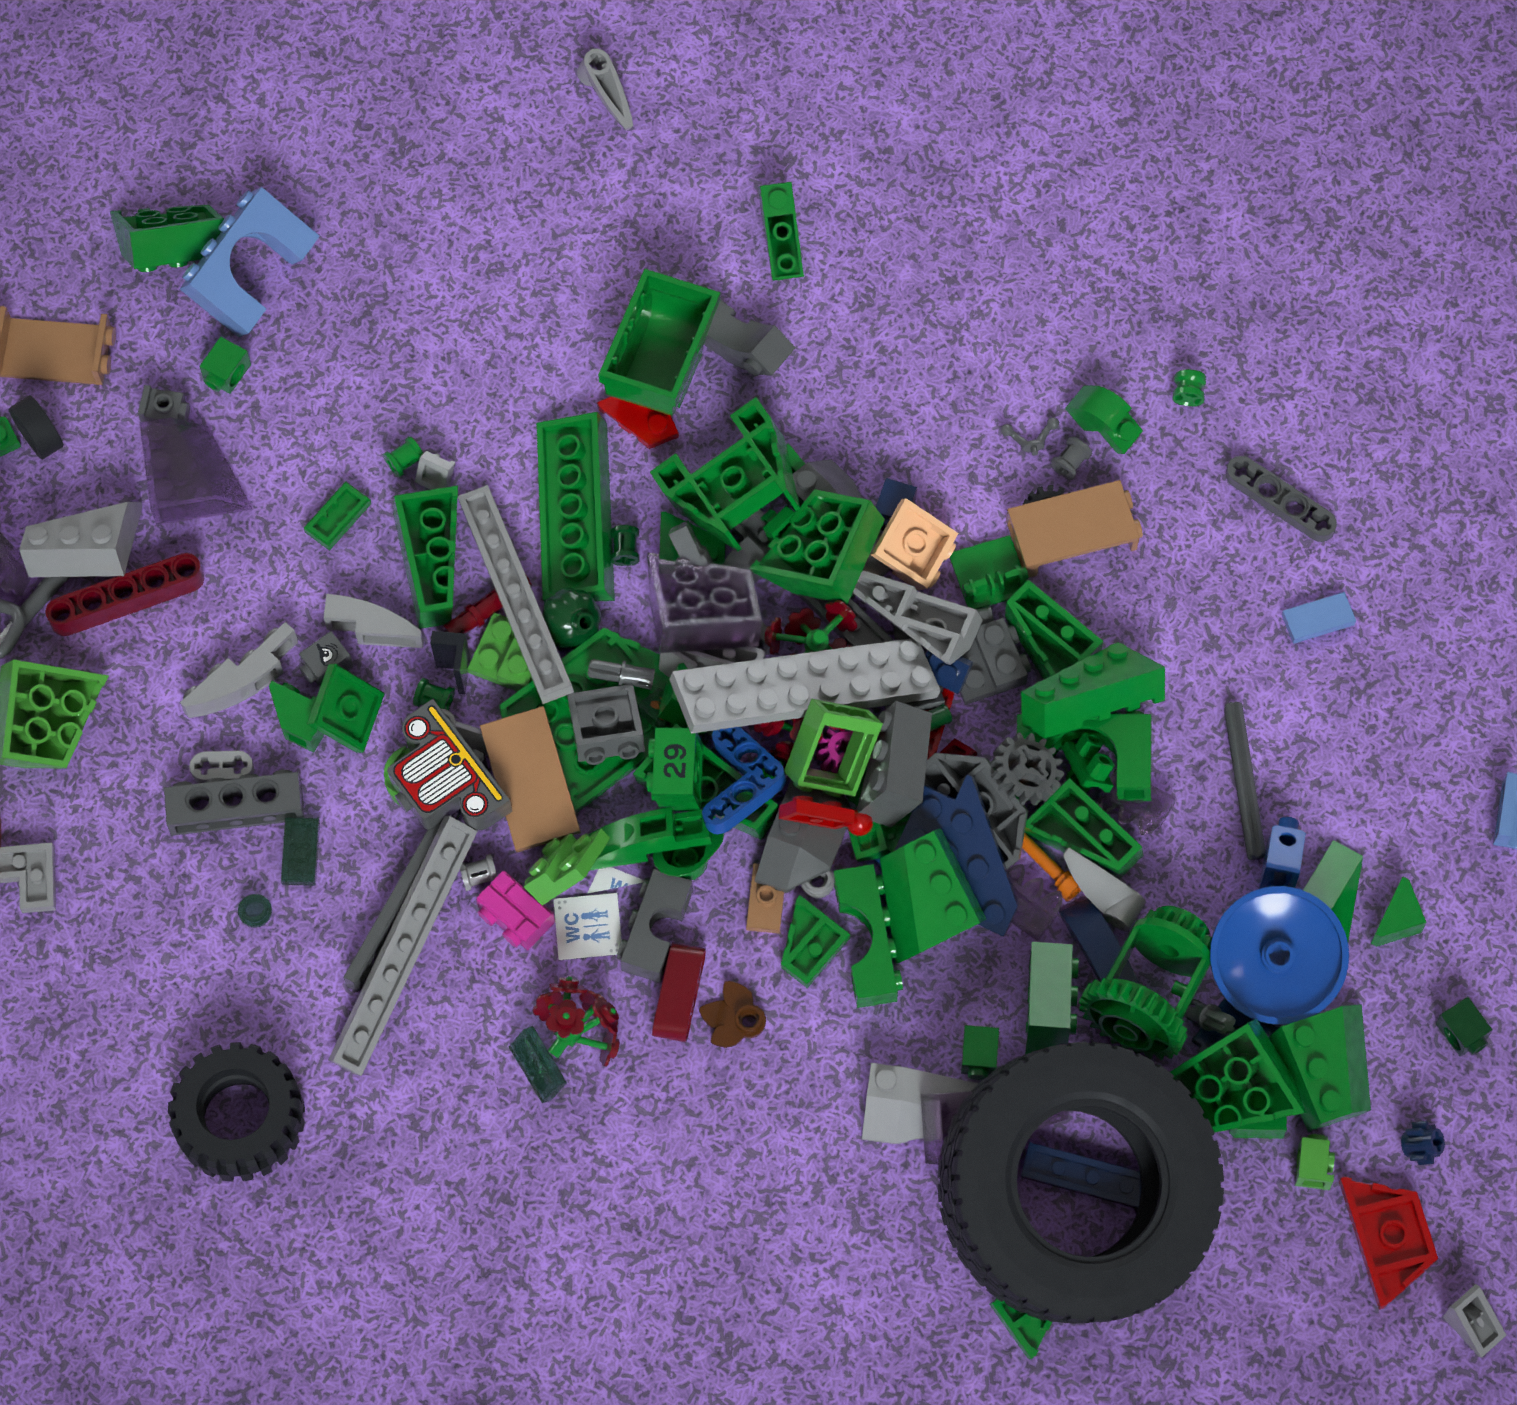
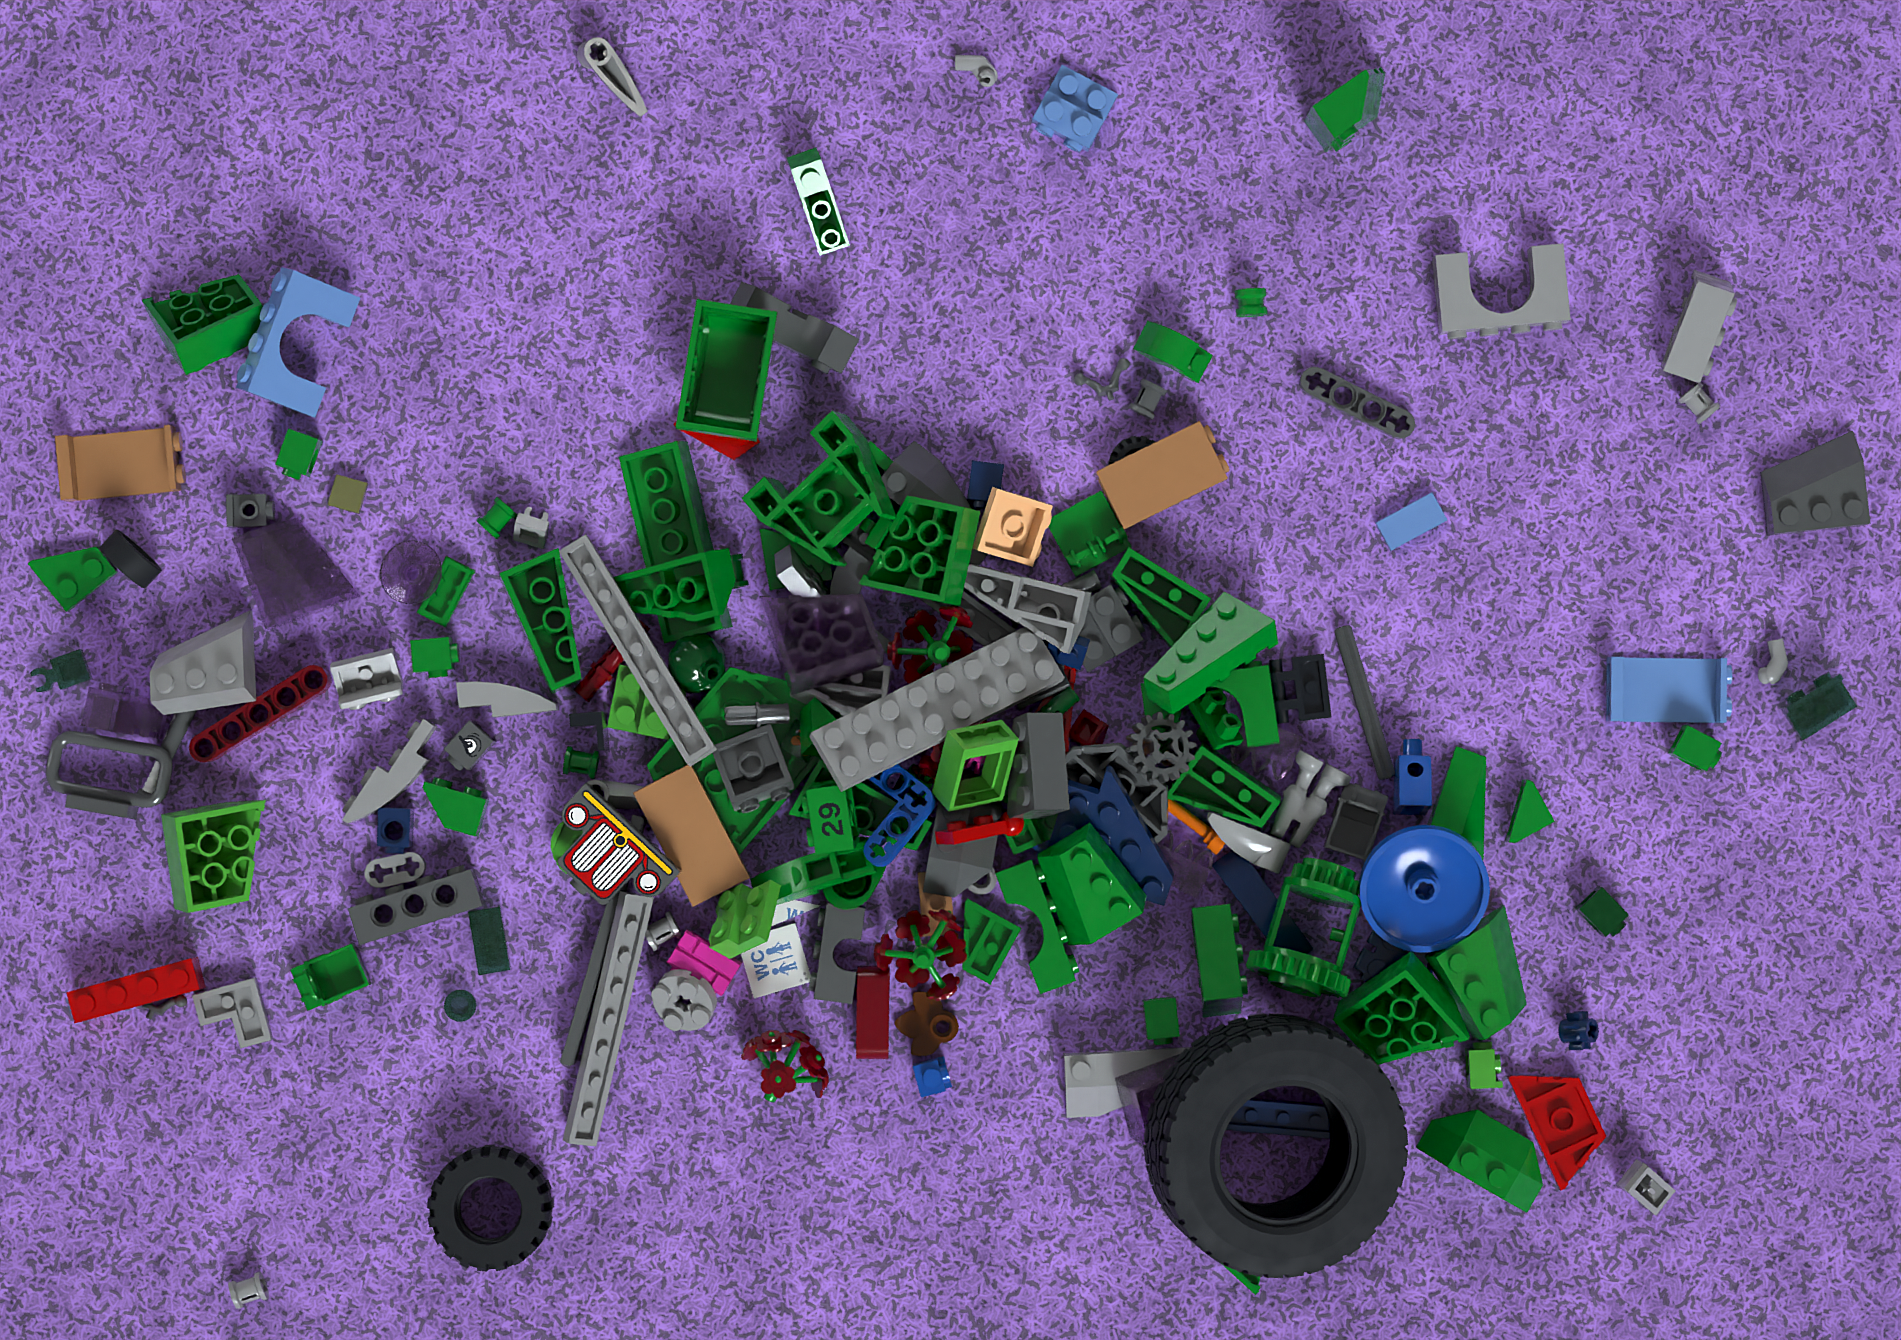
camera: 15 degrees left, 20 degrees up
(129, 857) = (330, 976): none -> green piece
(227, 713) = (385, 818): none -> dark blue brick
(239, 579) = (367, 679): none -> light grey bracket
(263, 413) = (347, 494): none -> olive tile
(302, 481) = (398, 565): none -> clear purple dish
(311, 570) = (434, 656): none -> green brick
(345, 708) = (501, 794): green tile -> none
(468, 945) = (673, 1011): none -> light grey plate
(537, 1064) = (756, 1107): plate -> none
(572, 537) = (682, 588): none -> green wedge
(727, 1066) = (932, 1076): none -> blue brick
(741, 919) = (913, 964): none -> dark red plant
(959, 141) = (979, 66): none -> light grey arm
(1044, 193) = (1074, 109): none -> medium blue plate
(1167, 871) = (1303, 808): none -> light grey piece
(1190, 758) = (1310, 688): none -> black plate
(1210, 1017) = (1370, 952): dark grey axle -> none
(1217, 888) = (1356, 821): none -> dark grey piece
(1305, 1258) = (1486, 1155): none -> green wedge
(1310, 223) = (1346, 110): none -> green wedge
(1400, 433) = (1462, 313): none -> light grey arch

